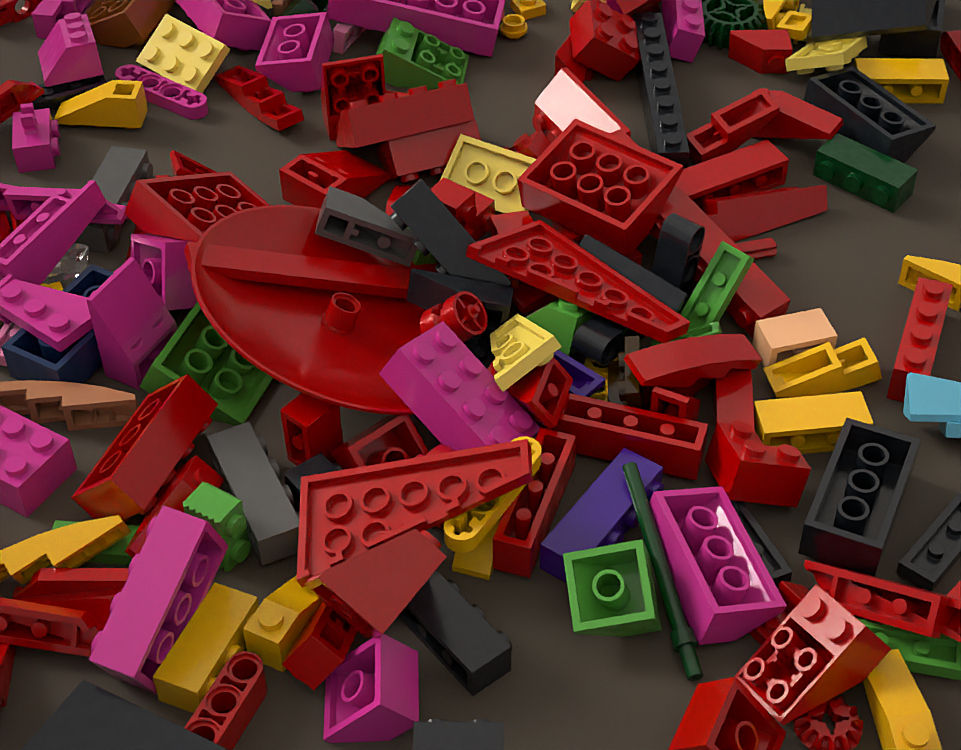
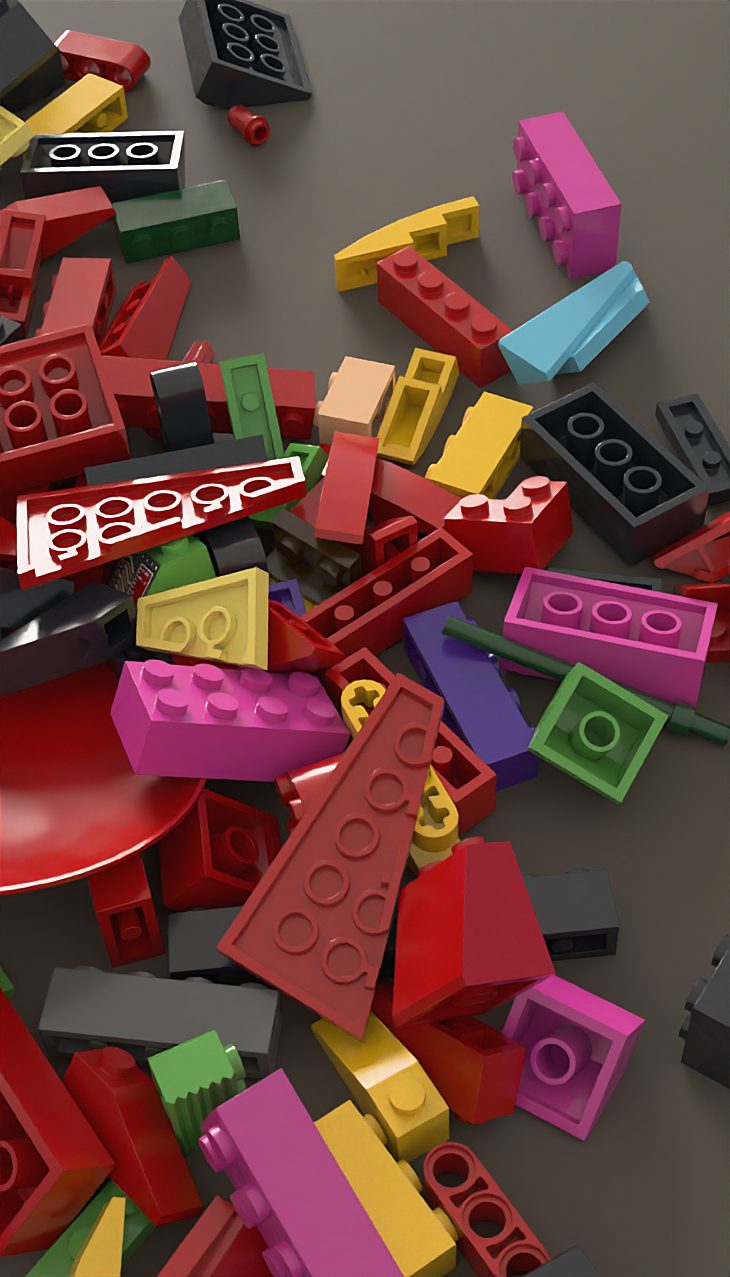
camera: 55 degrees left, 5 degrees up
(460, 312) = (94, 669): red wheel -> none

